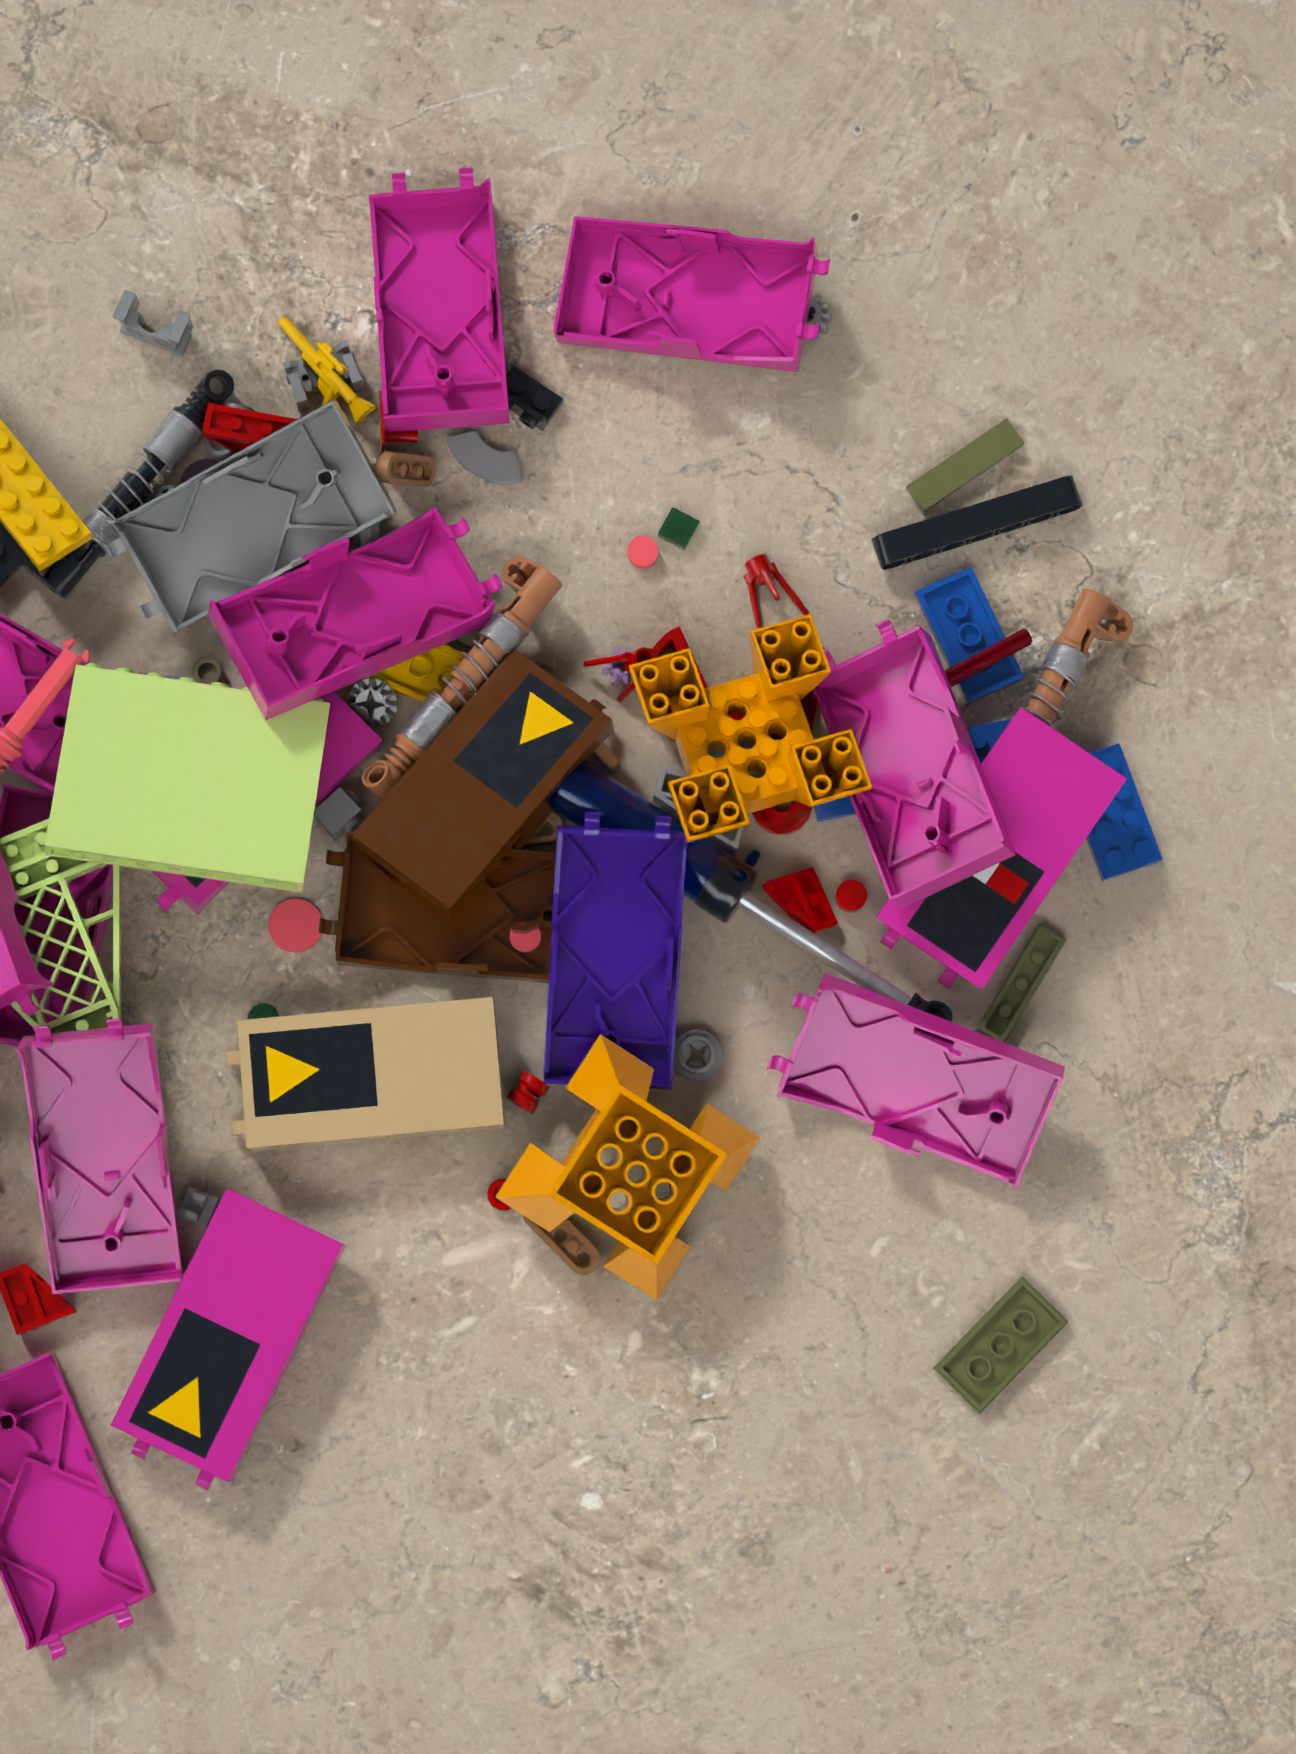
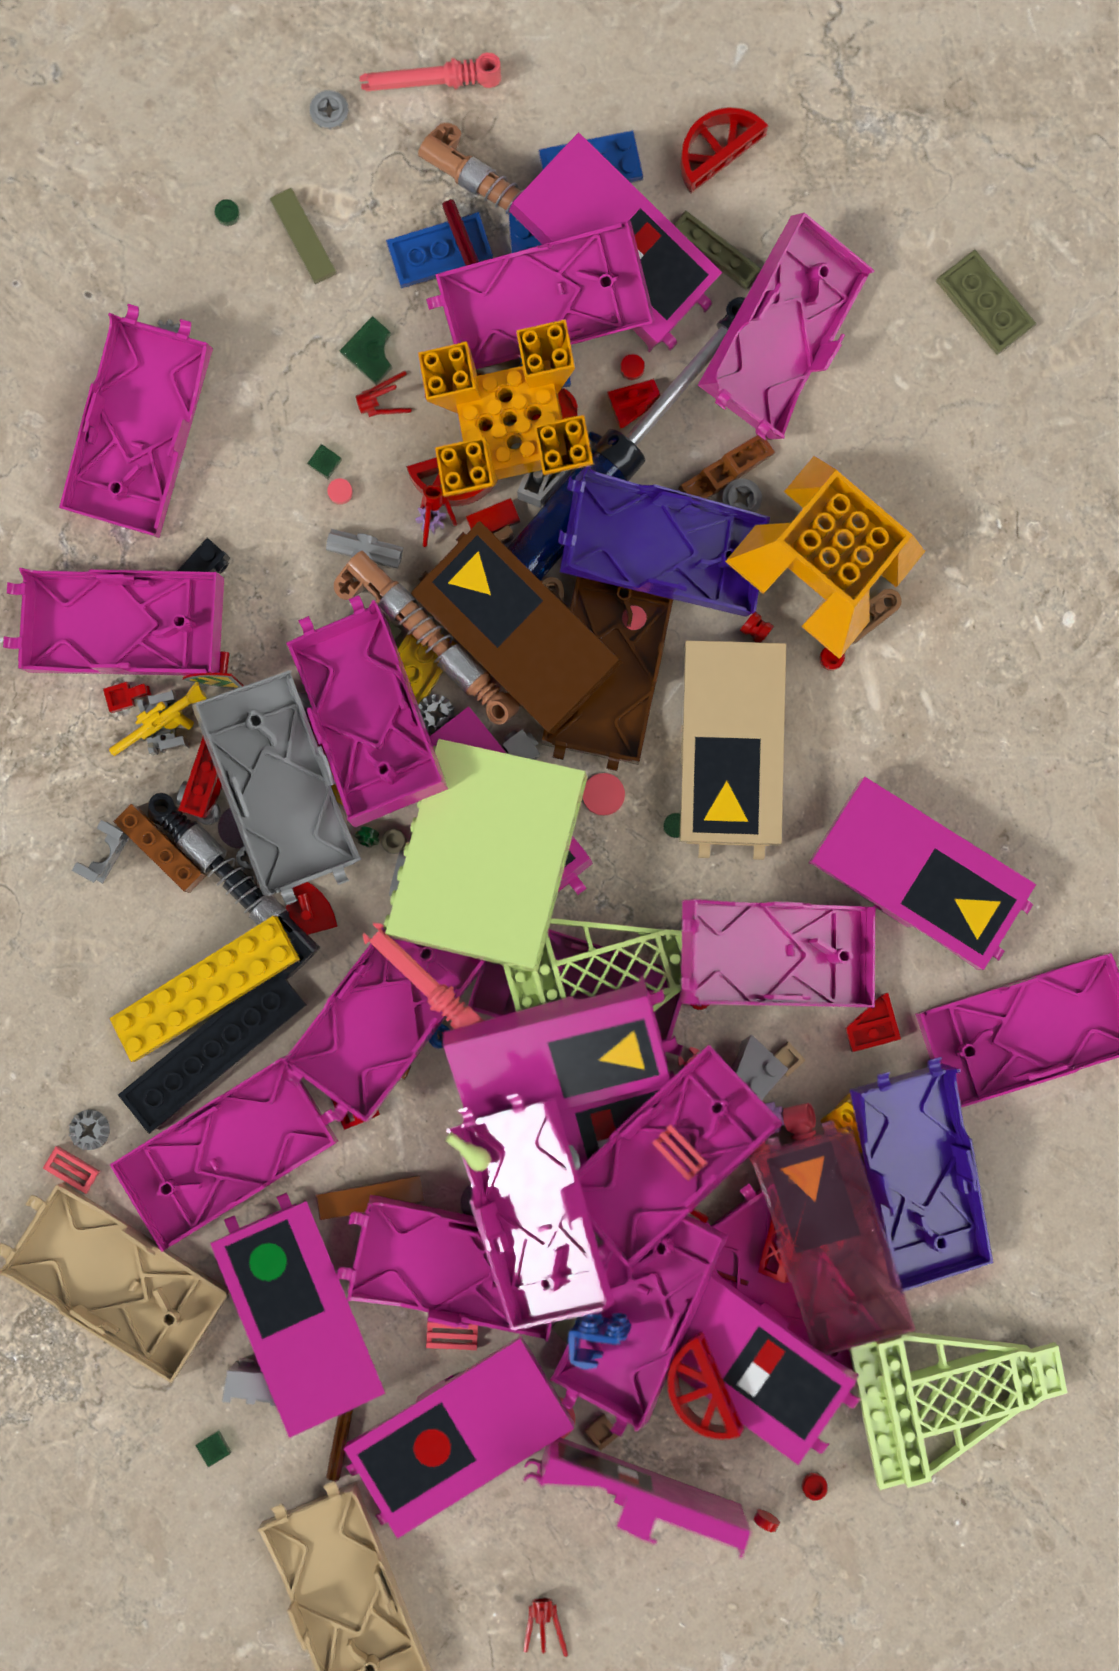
camera: 80 degrees left, 5 degrees up
(111, 583) = (311, 910): none -> red shield
(166, 390) = (159, 848): none -> dark orange brick
(197, 1207) = (816, 891): light grey tile -> none
(208, 639) = (367, 836): none -> dark green plate
(352, 323) = (122, 696): none -> red plate
(405, 469) = (251, 663): medium nougat plate -> none
(484, 461) = (249, 606): light grey tile -> none
(574, 591) = (351, 544): none -> light grey piece
(632, 745) = (495, 516): none -> red tile
(729, 1029) = (728, 468): none -> dark orange slope
(827, 564) = (367, 350): none -> clear green tile
(976, 522) = (350, 231): black beam -> none
(982, 369) = (227, 212): none -> clear green tile
(1140, 465) = (320, 103): none -> light grey gear
(1146, 981) = (711, 165): none -> red window
(1201, 621) = (451, 74): none -> coral piece

